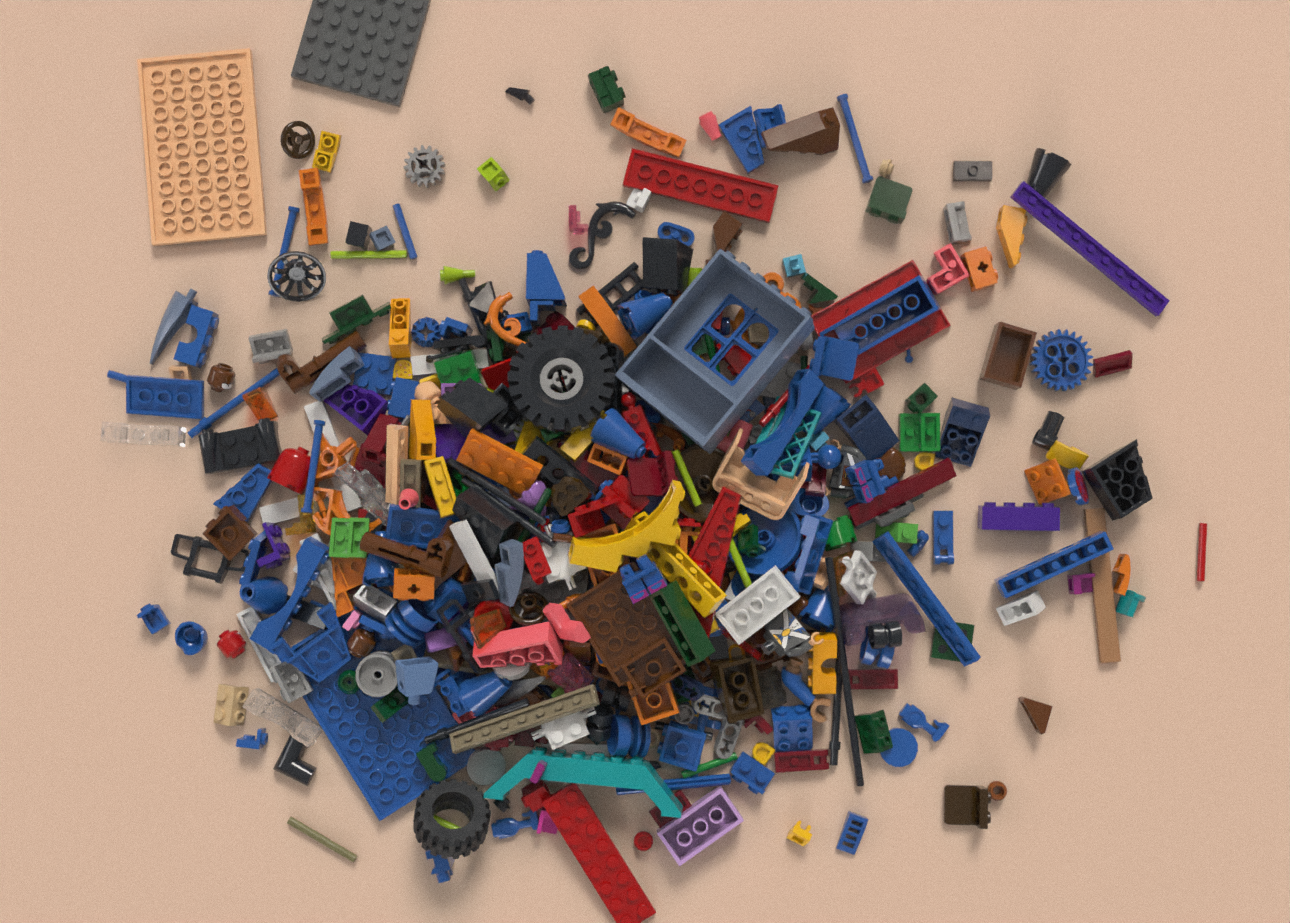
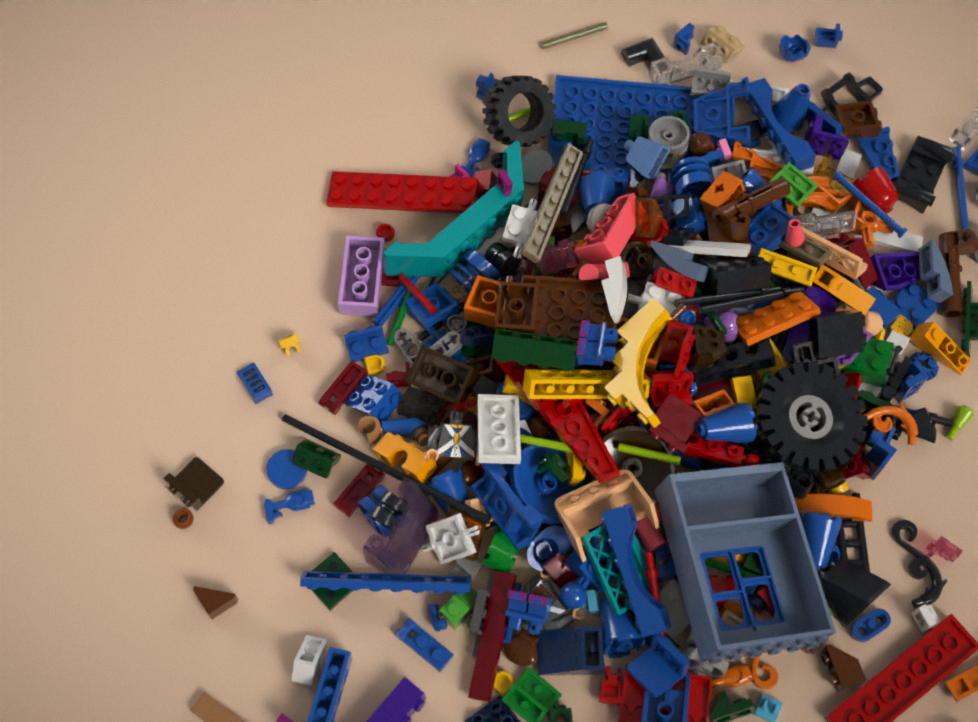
camera: 125 degrees right, 20 degrees down
(231, 644) = (768, 69): red head -> none
(260, 404) = (947, 208): clear orange slope -> none
(542, 281) = (907, 480): blue slope -> none
(580, 600) = (615, 287): none -> white slope
(683, 766) = (417, 293): none -> red bar
(835, 744) = (333, 422): black bar -> none

